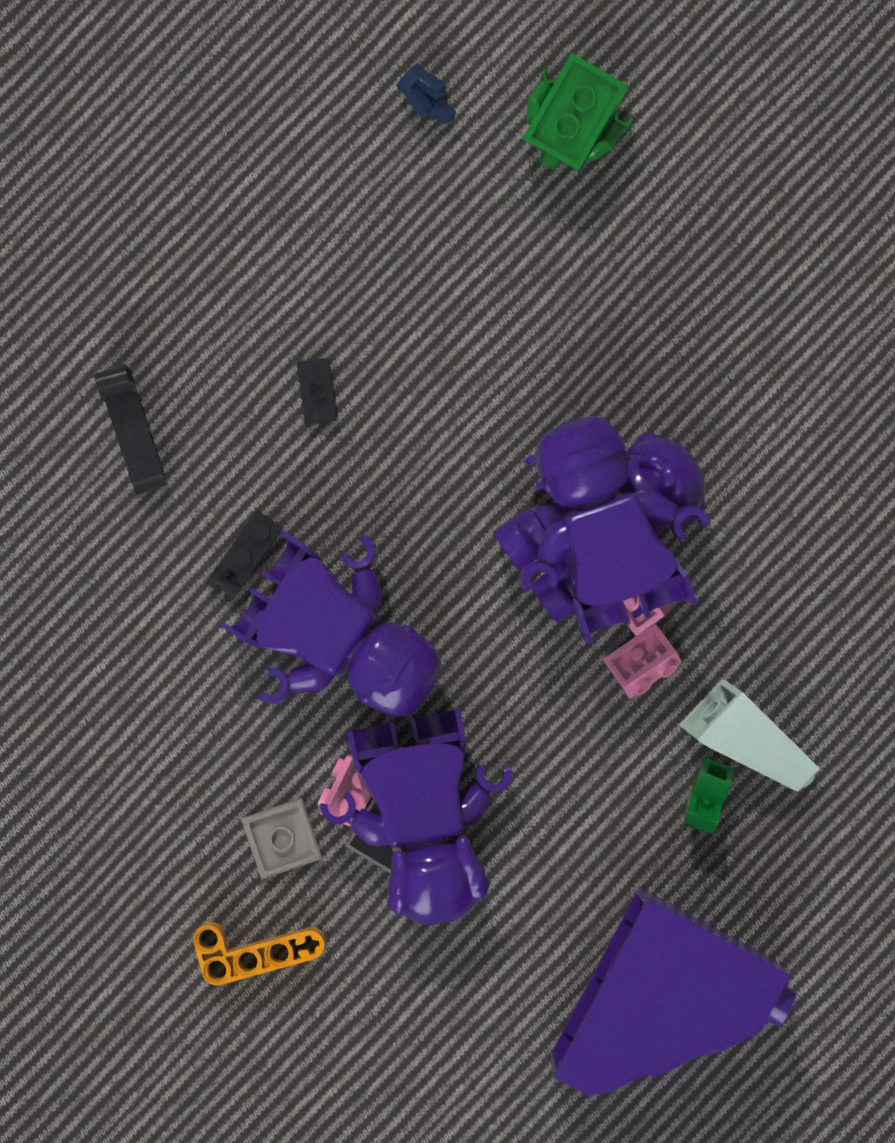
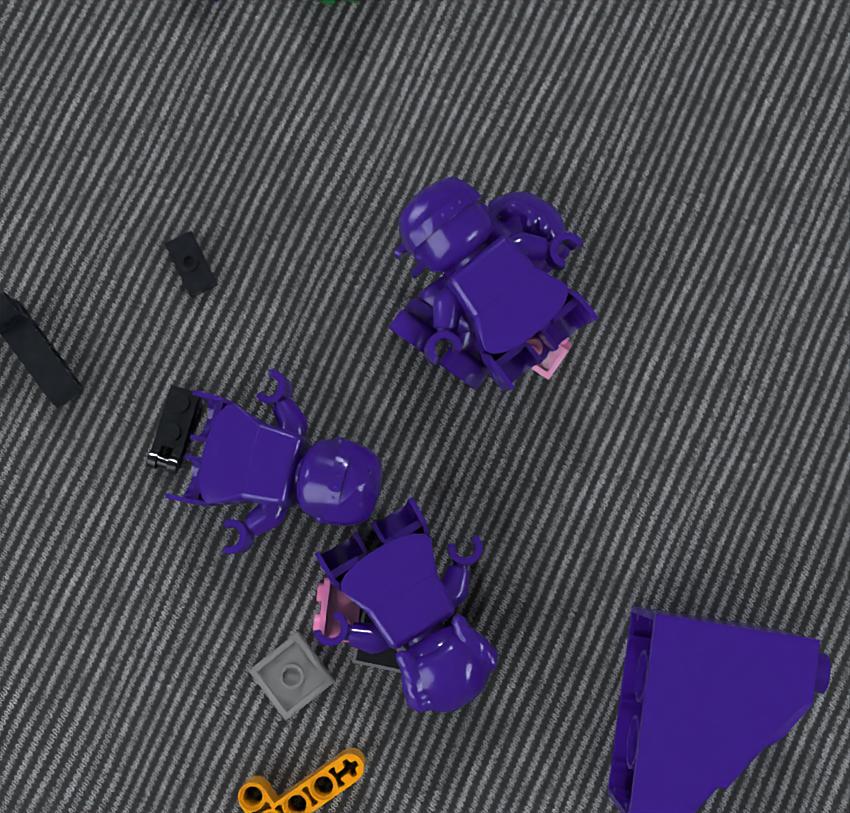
camera: 20 degrees left, 5 degrees down
(643, 661) = (563, 400): bright pink bracket -> none
(708, 795) = (665, 499): green brick -> none
(741, 731) = (679, 430): light aqua slope -> none

